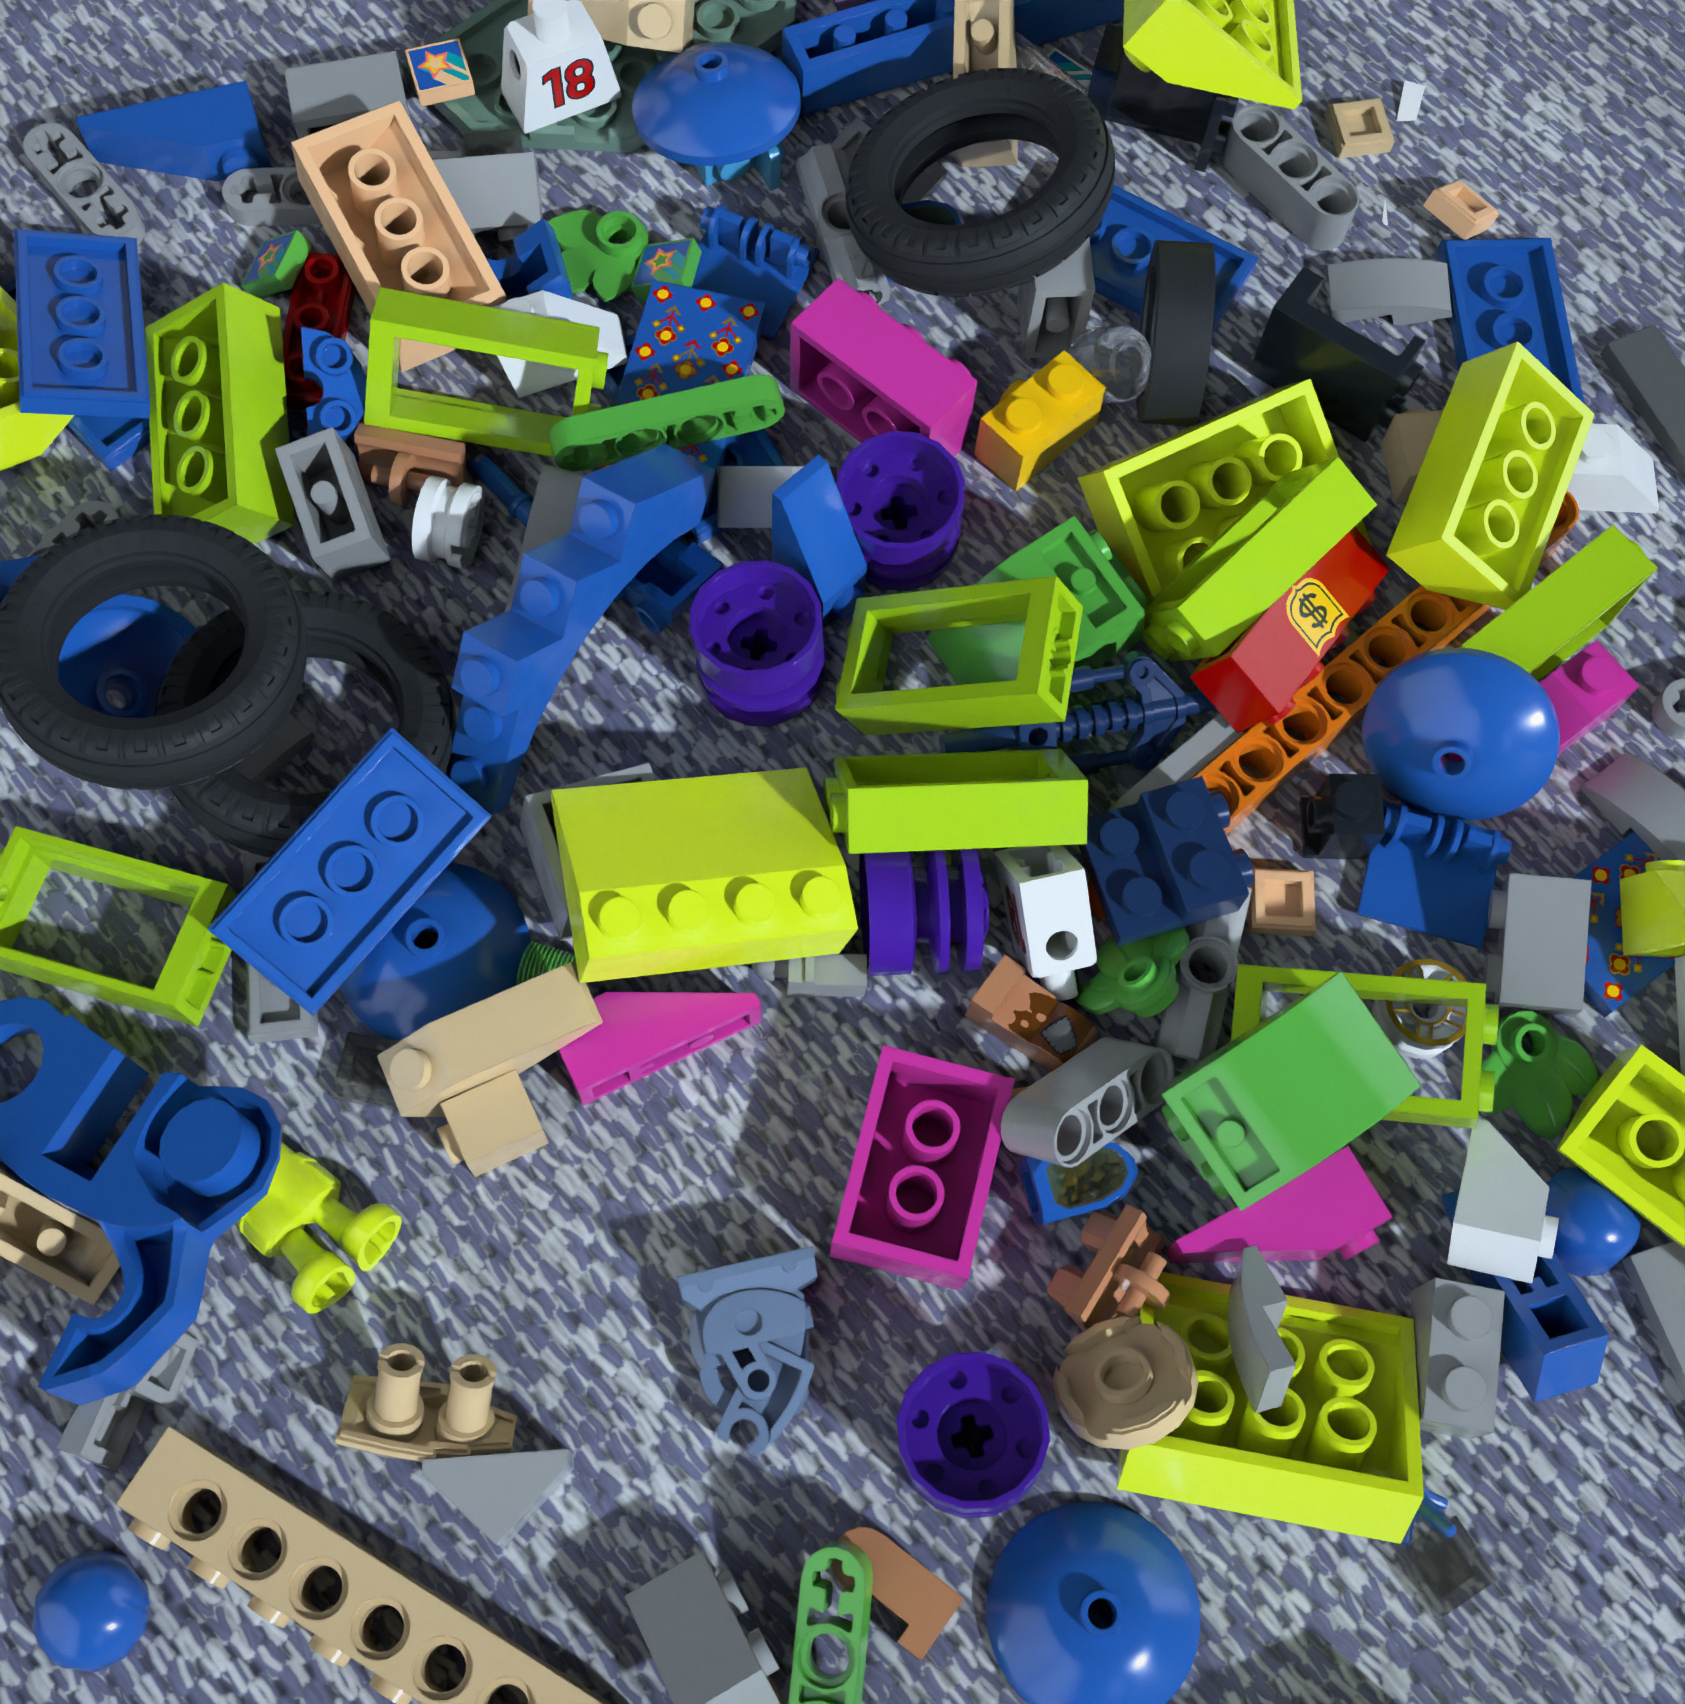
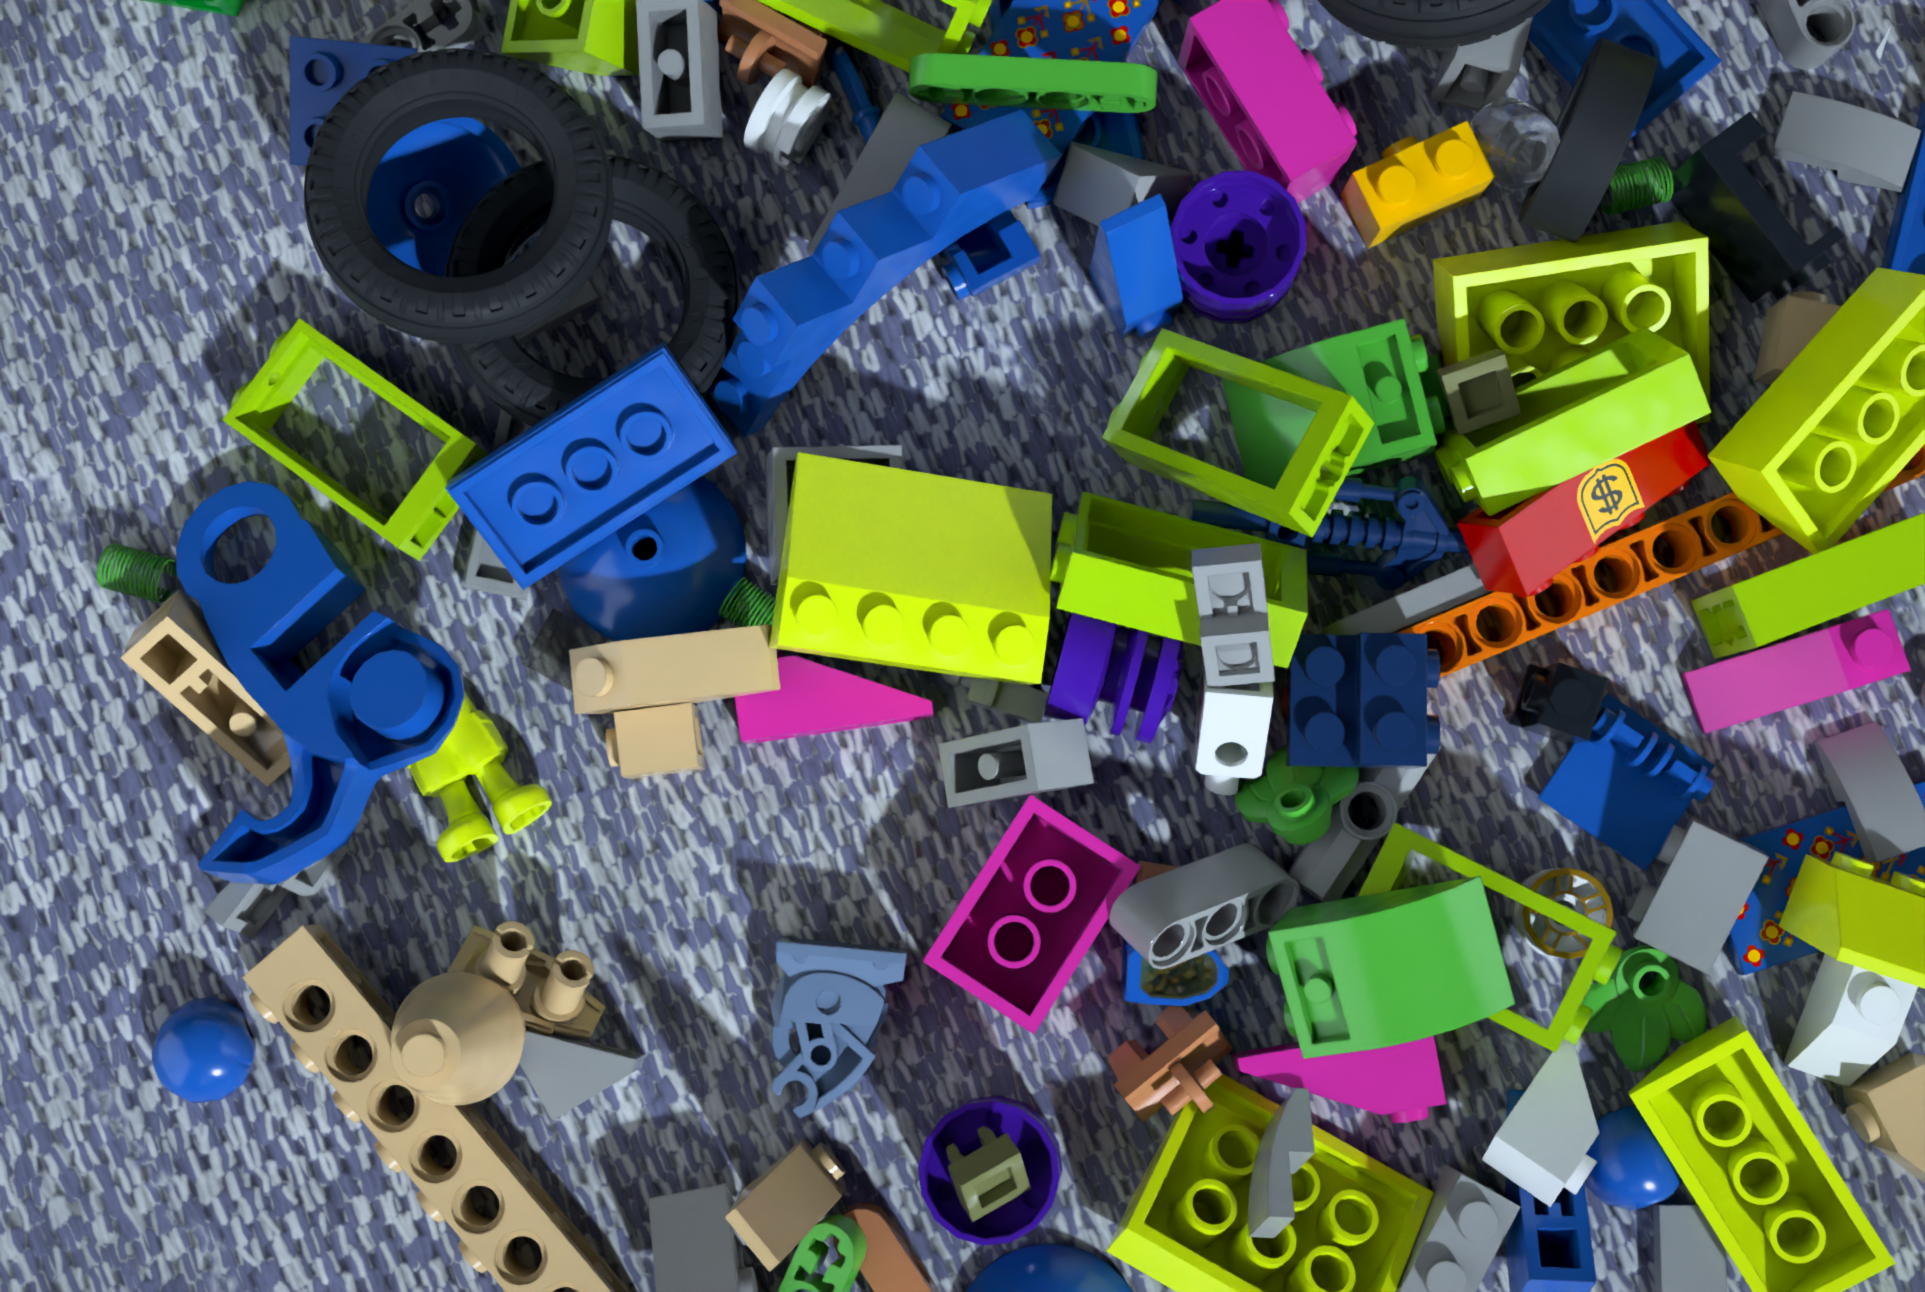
camera: 25 degrees right, 15 degrees up
(370, 1488) = (457, 1038): none -> tan cone
(752, 614) = (1042, 313): dark purple wheel -> none
(774, 1535) = (787, 1201): none -> tan slope
(852, 1021) = (1015, 762): none -> light grey brick
(973, 1430) = (988, 1174): none -> olive tile
(1020, 800) = (1233, 615): none -> light grey slope
(1029, 1017) = (1184, 801): leg -> none
(1125, 1383) = (1142, 1171): tan tile -> none
(1164, 561) = (1479, 391): none -> olive tile
(1232, 366) = (1617, 181): none -> bright green piece
(1282, 902) = (1468, 762): light nougat tile -> none
(1463, 706) = (1706, 664): blue dish -> none

